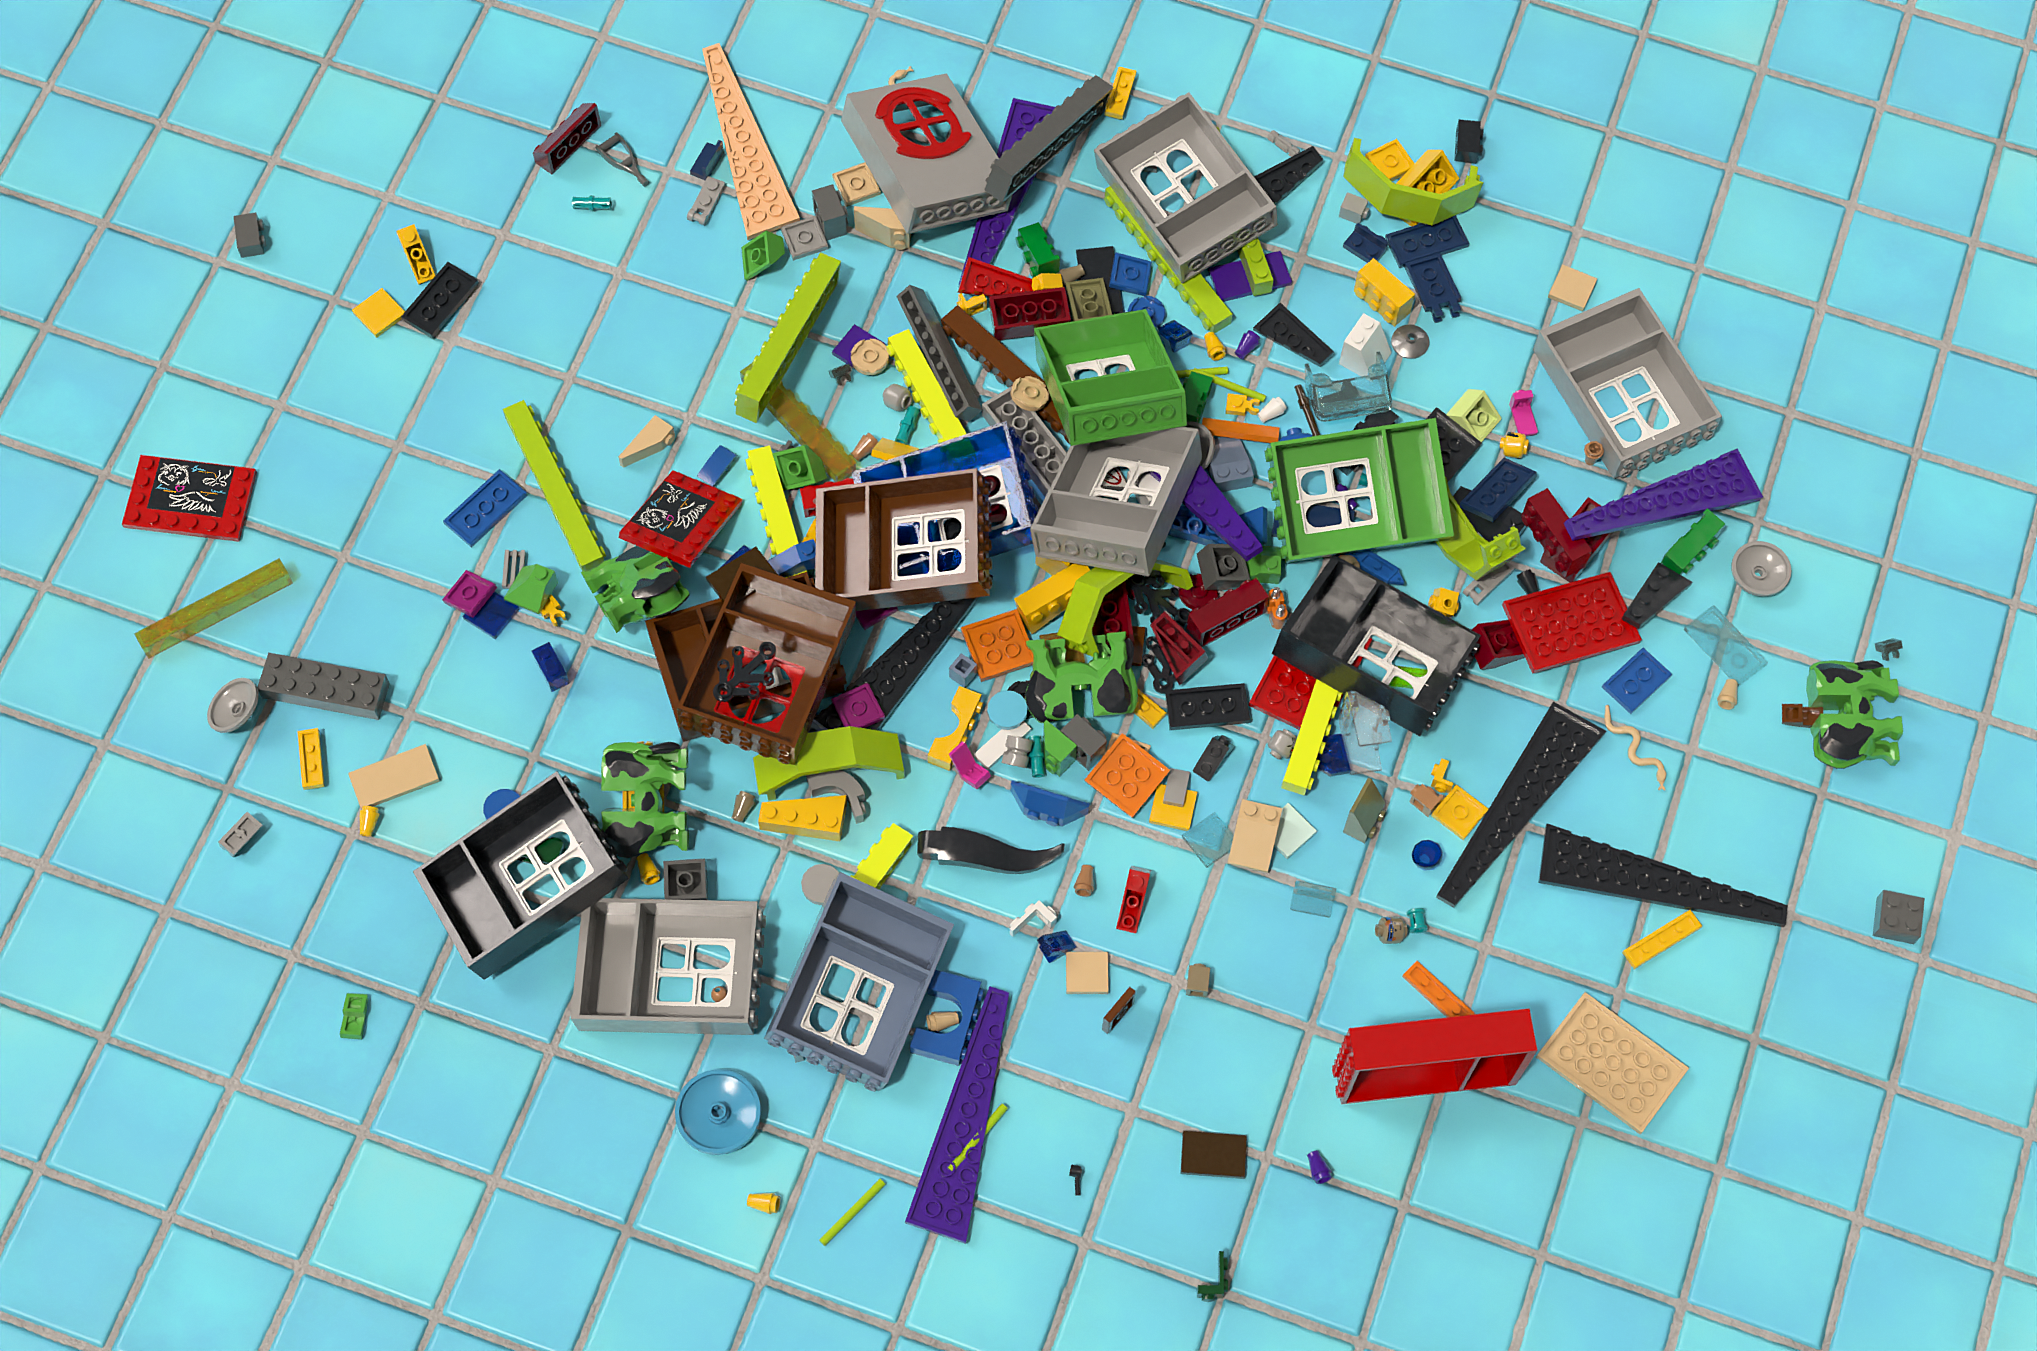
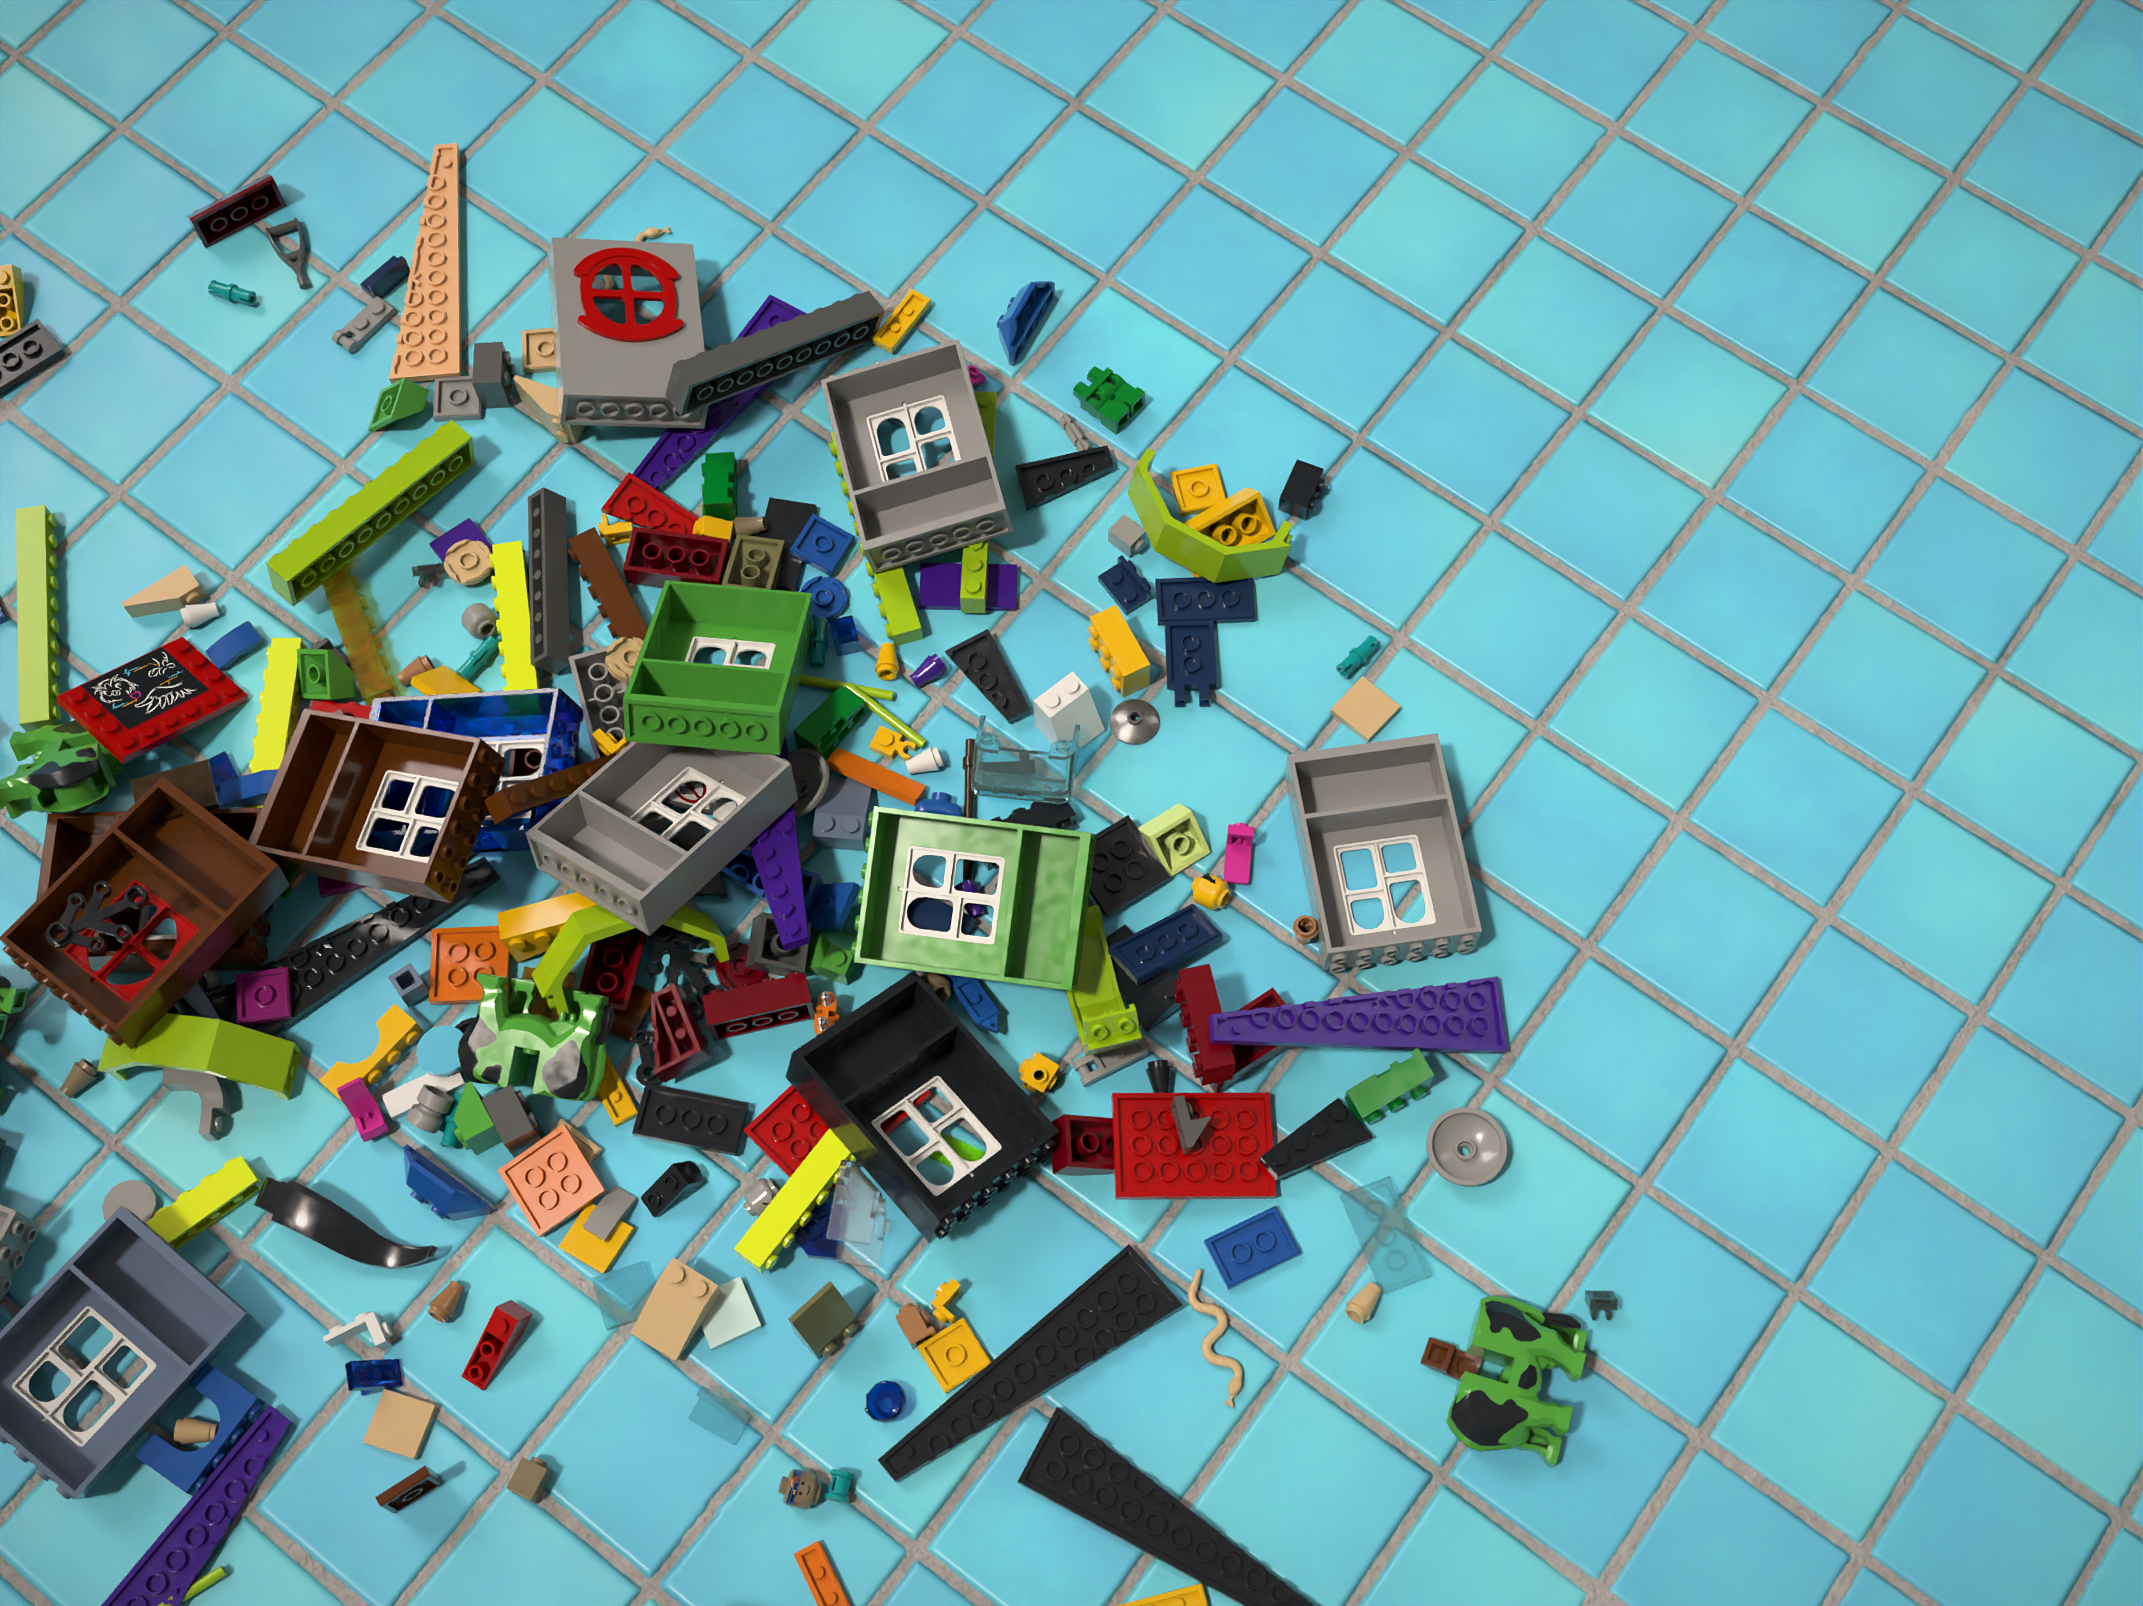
camera: 20 degrees right, 0 degrees up
(677, 450) = (198, 613): none -> white cone
(805, 817) = (149, 1116): yellow wedge -> none
(1028, 496) = (541, 791): none -> reddish brown arch
(1044, 459) = (608, 743): none -> yellow bracket
(1211, 68) = (1023, 317): none -> blue wedge
(1299, 110) = (1109, 398): none -> green hips
(1553, 251) = (1357, 656): none -> teal pin
(1566, 610) = (1187, 1129): none -> dark grey slope

